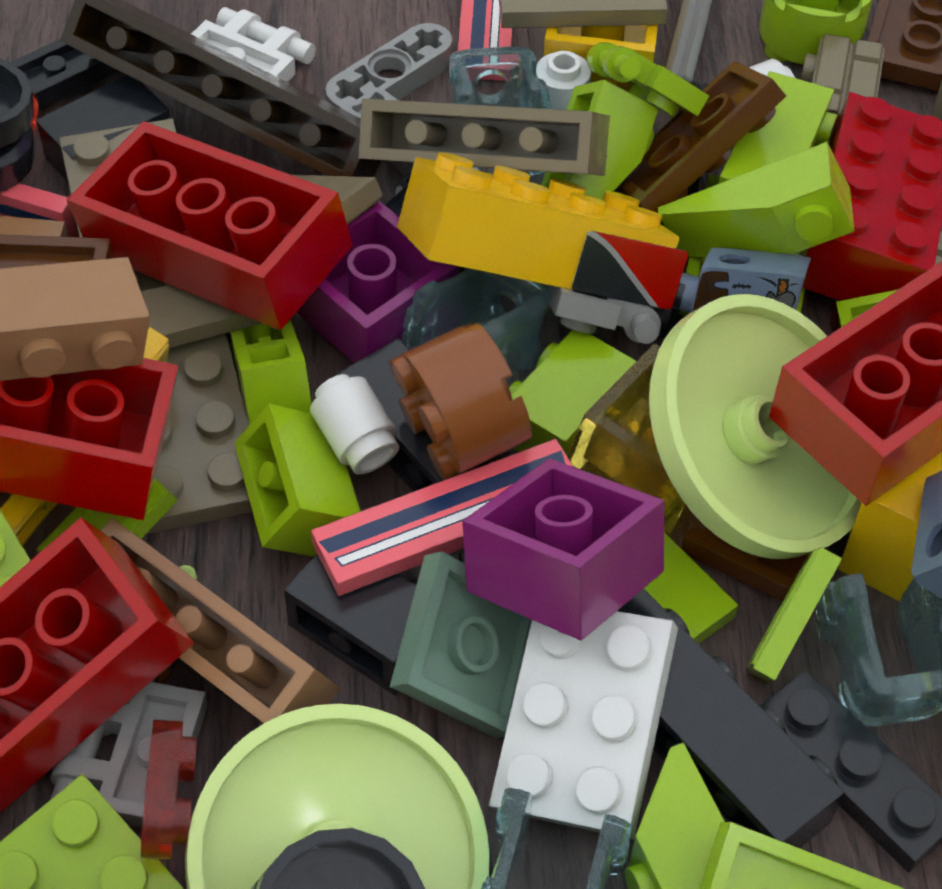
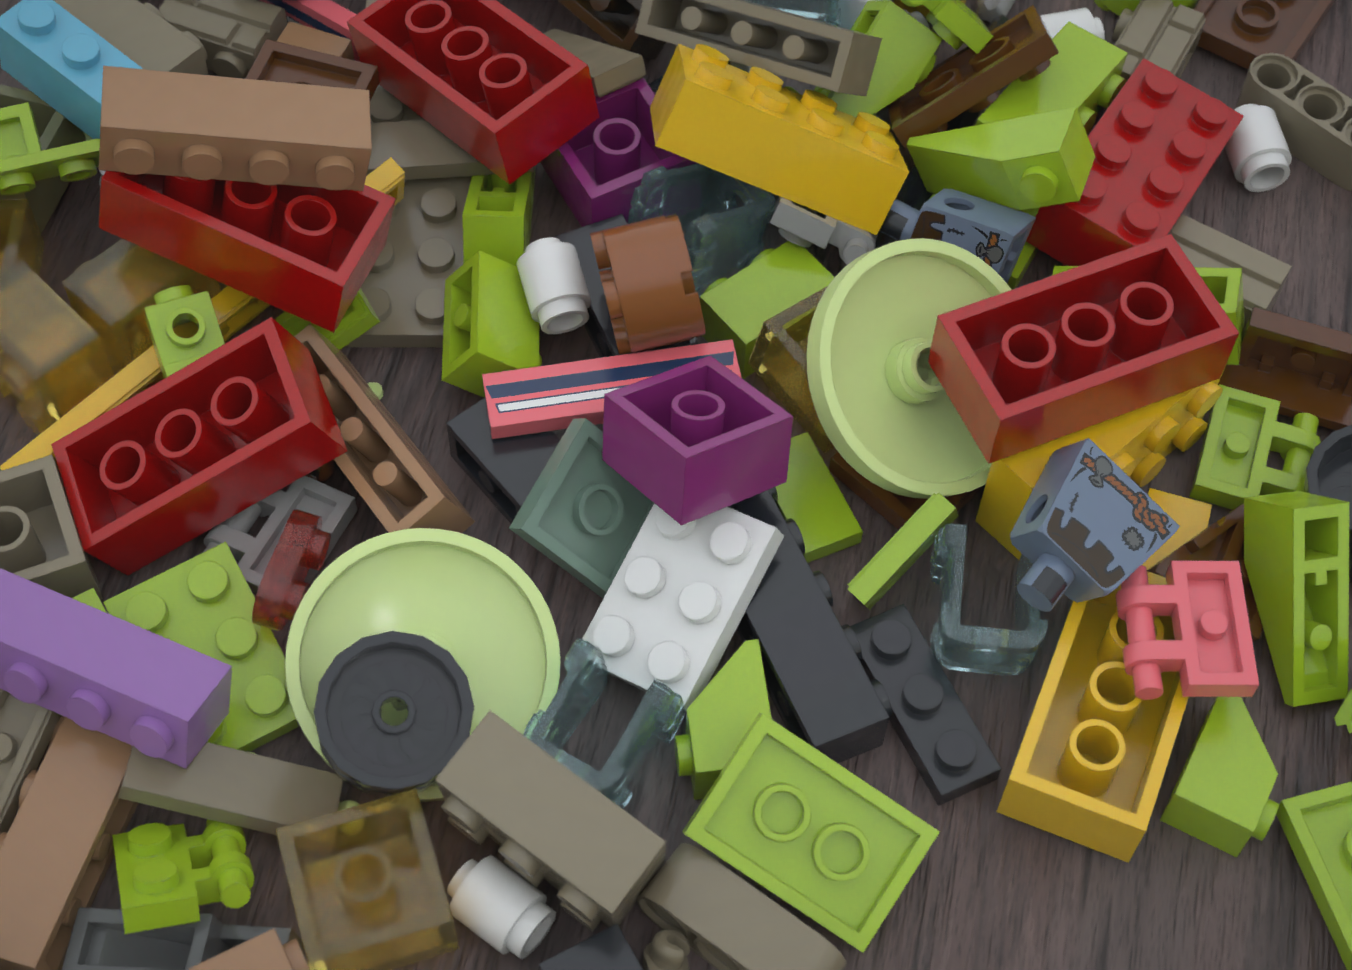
camera: 15 degrees right, 5 degrees up
(629, 270) = (853, 194): sticker -> none

